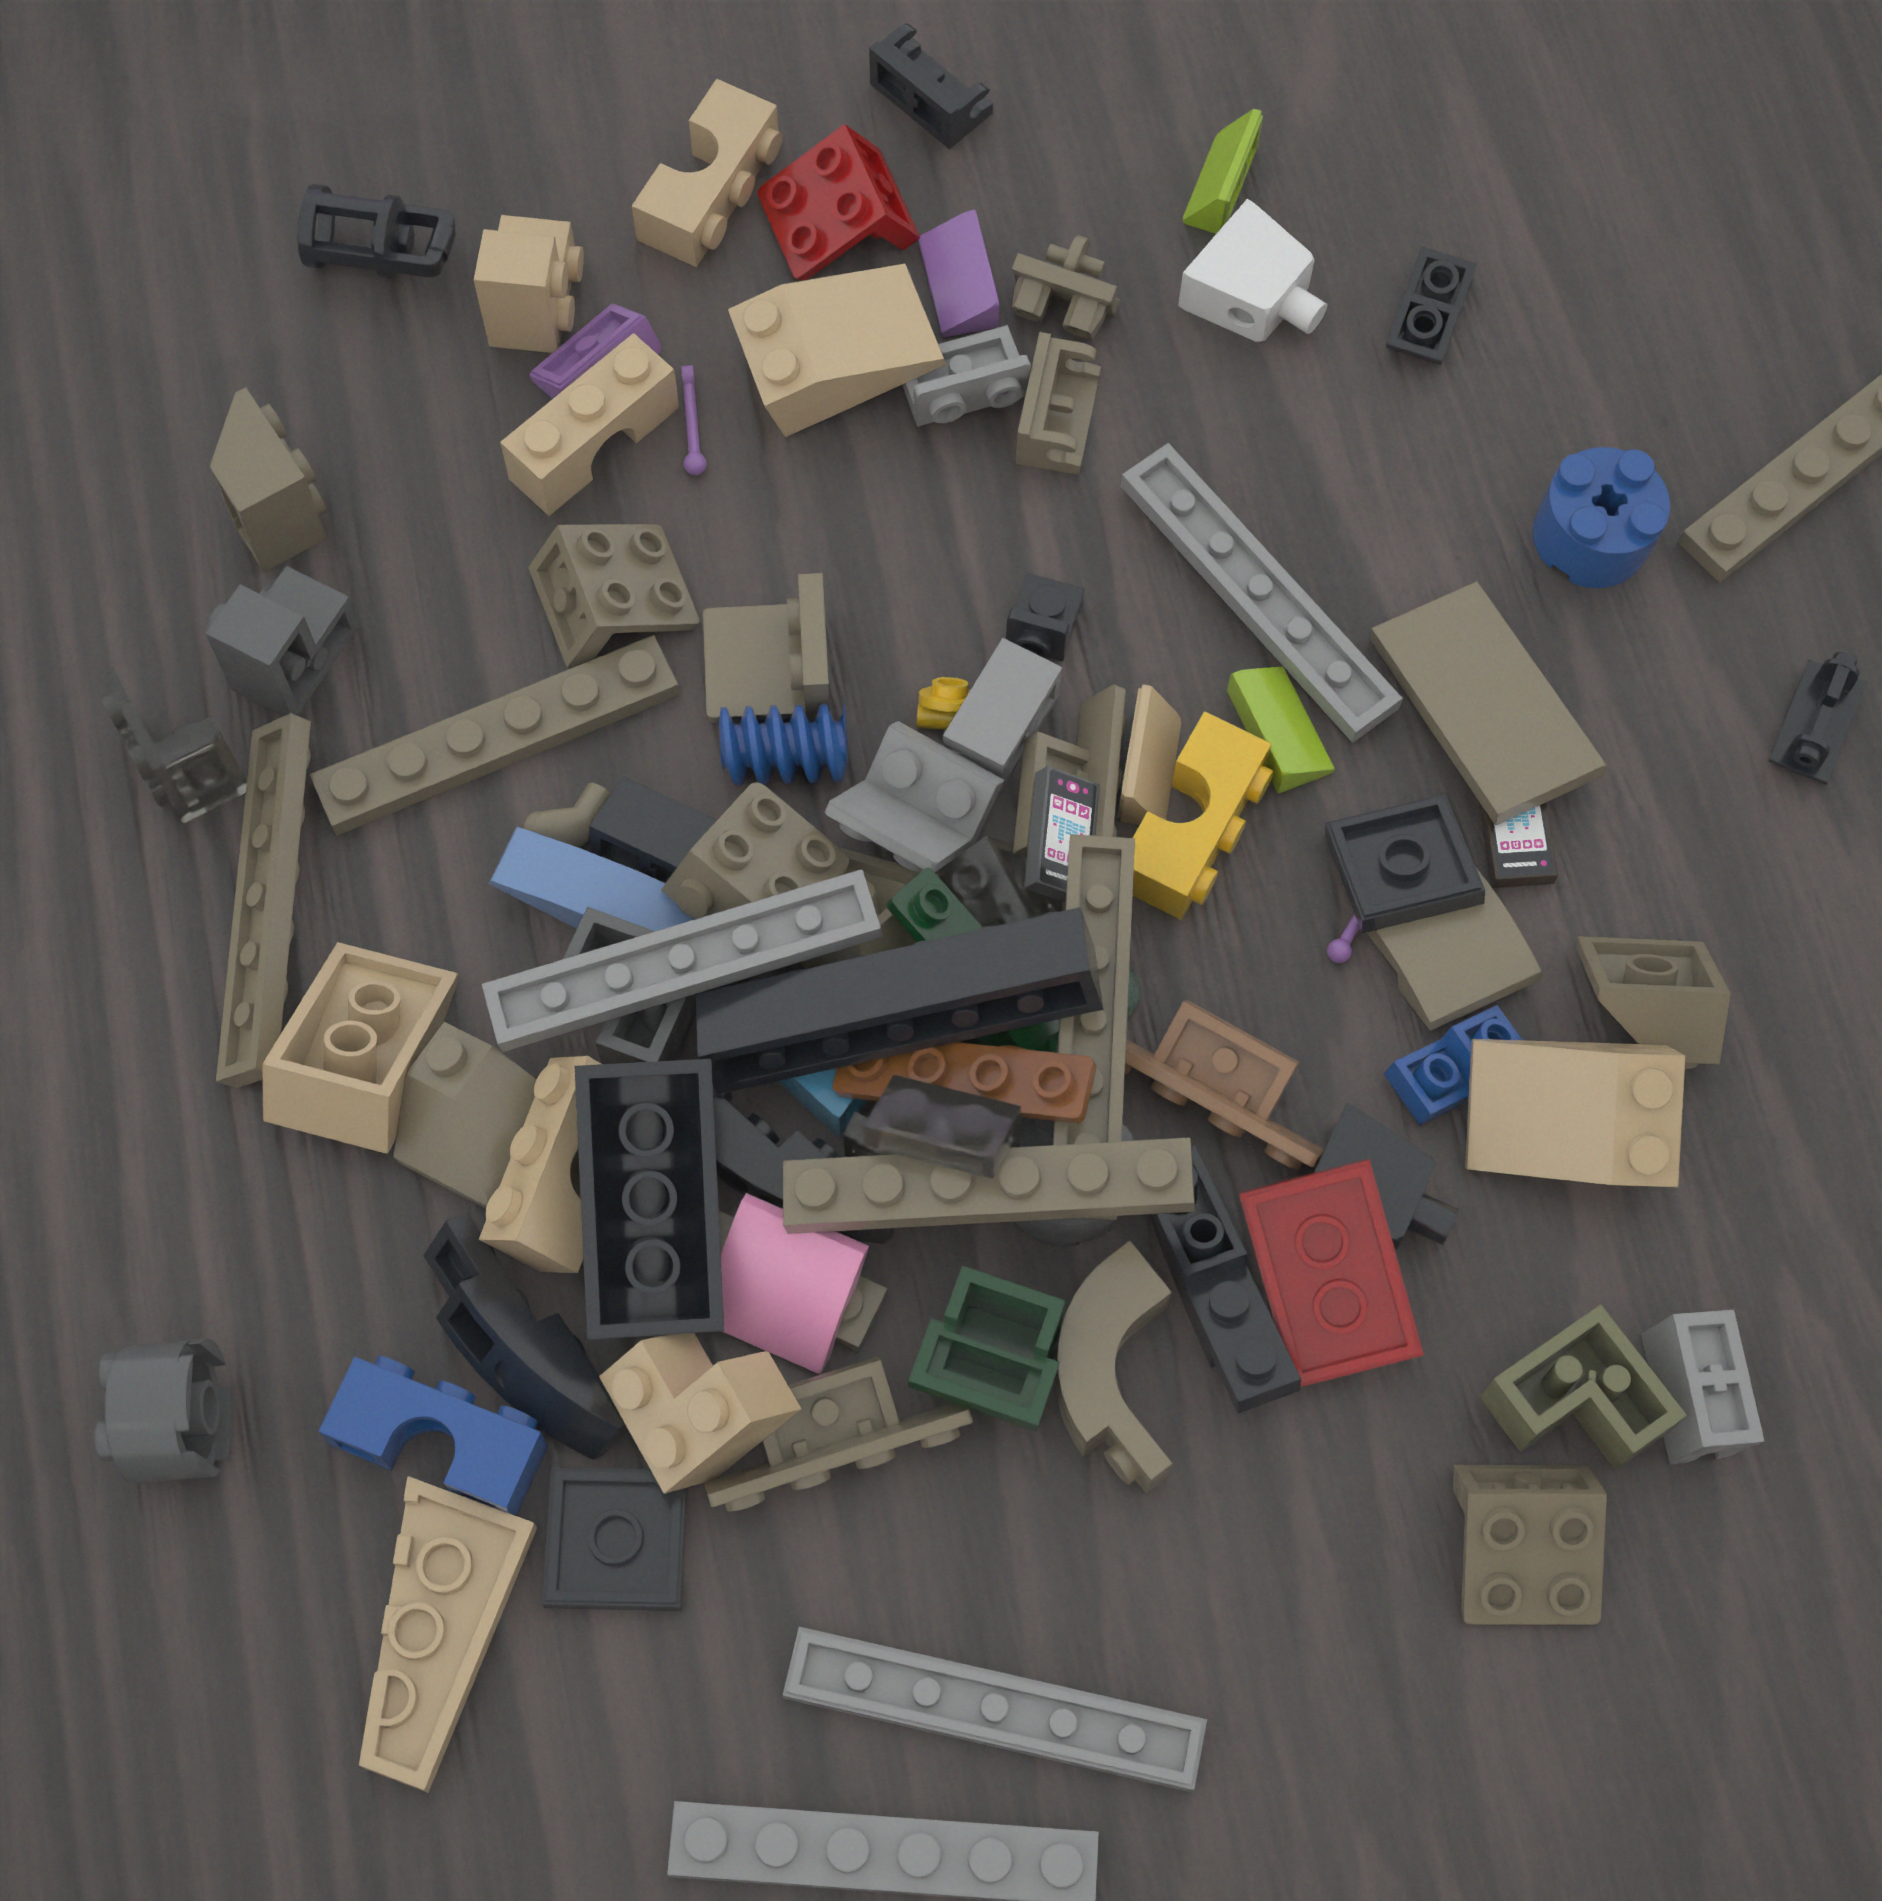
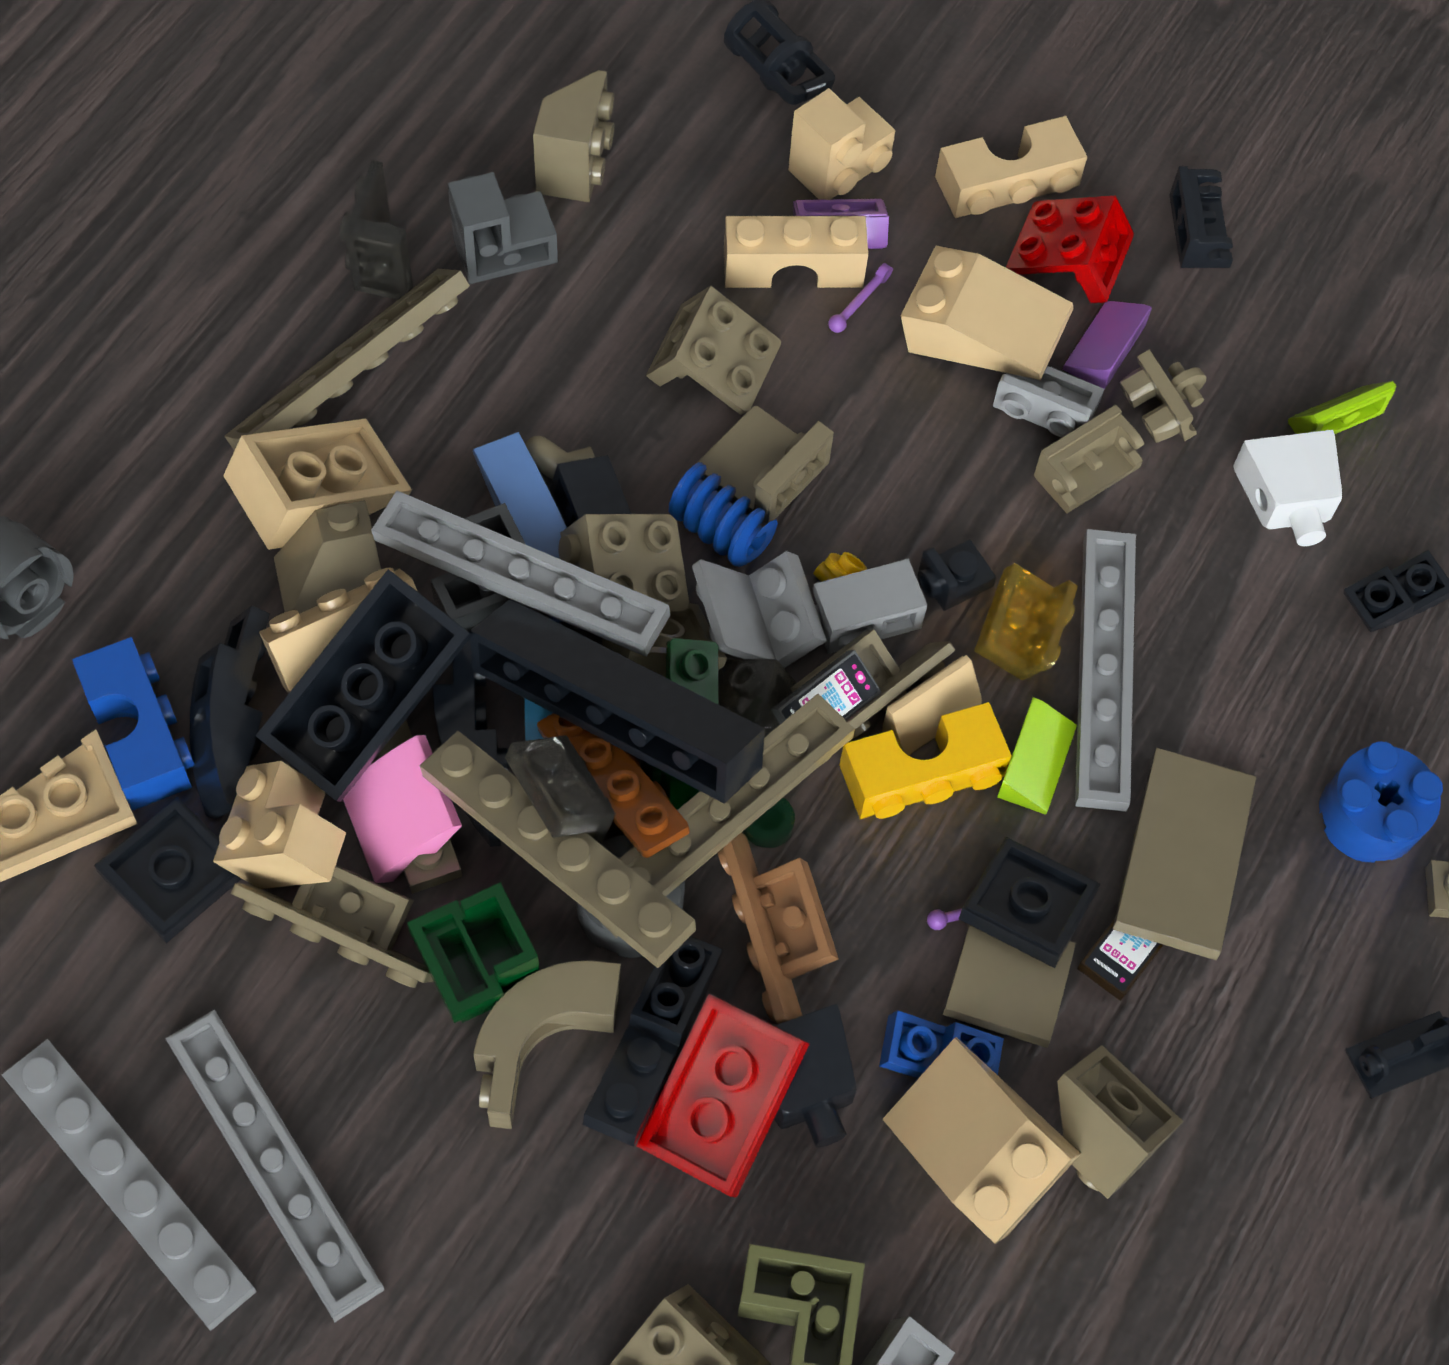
camera: 40 degrees right, 5 degrees down
(494, 735) = (569, 379): dark tan plate -> none
(1155, 608) = (1026, 622): none -> clear yellow bracket

